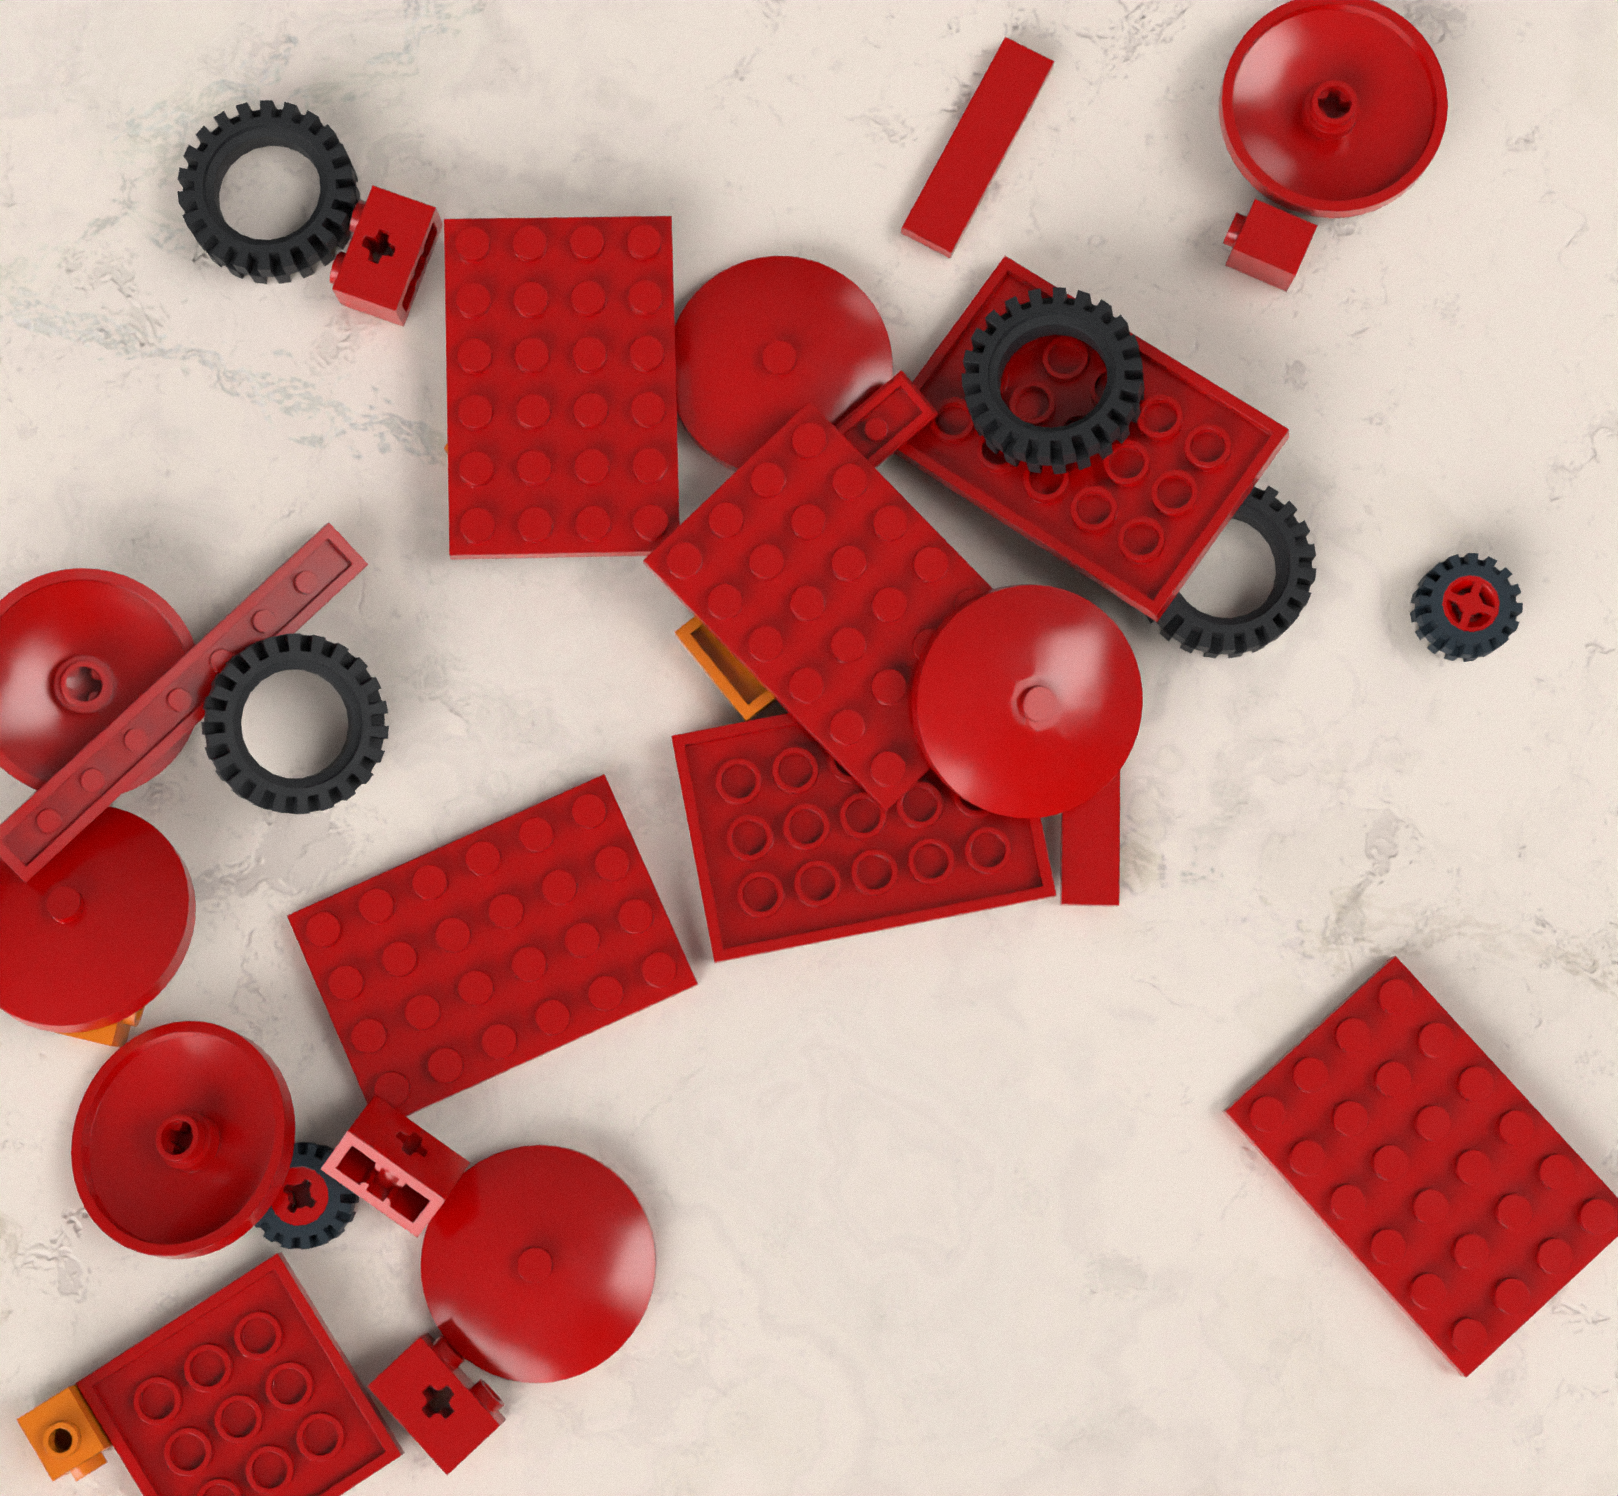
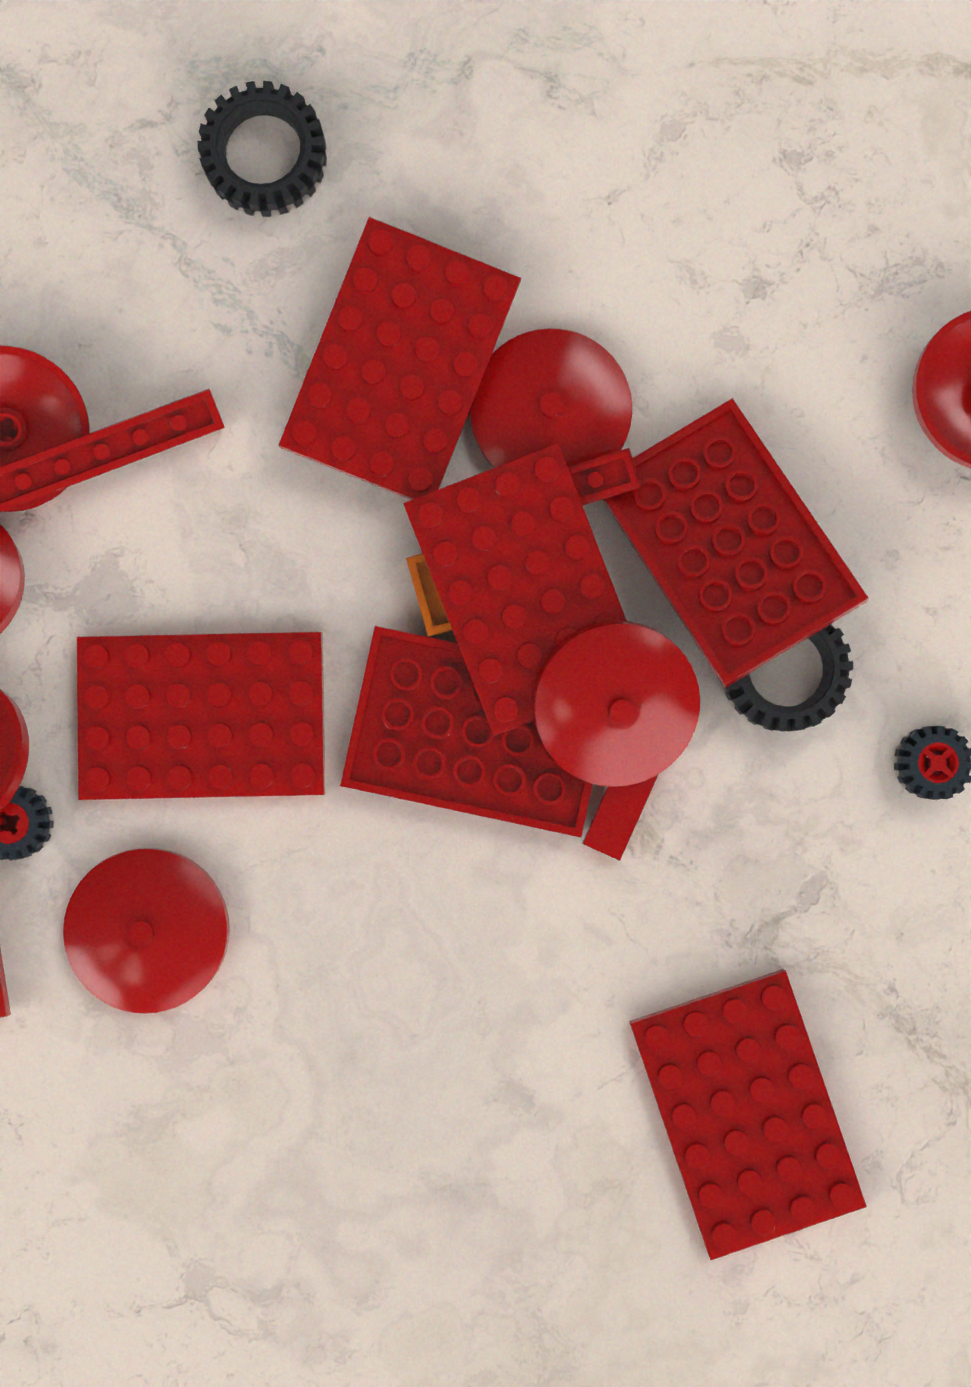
camera: 25 degrees right, 5 degrees up
(364, 715) = (126, 563): black tyre -> none
(392, 284) = (319, 245): red brick -> none
(395, 1166) = (78, 831): red brick -> none
(407, 1396) = (39, 1013): red brick -> none
(977, 147) = (746, 316): red tile -> none
(1039, 319) = (734, 451): black tyre -> none
(1268, 244) = (911, 464): red brick -> none

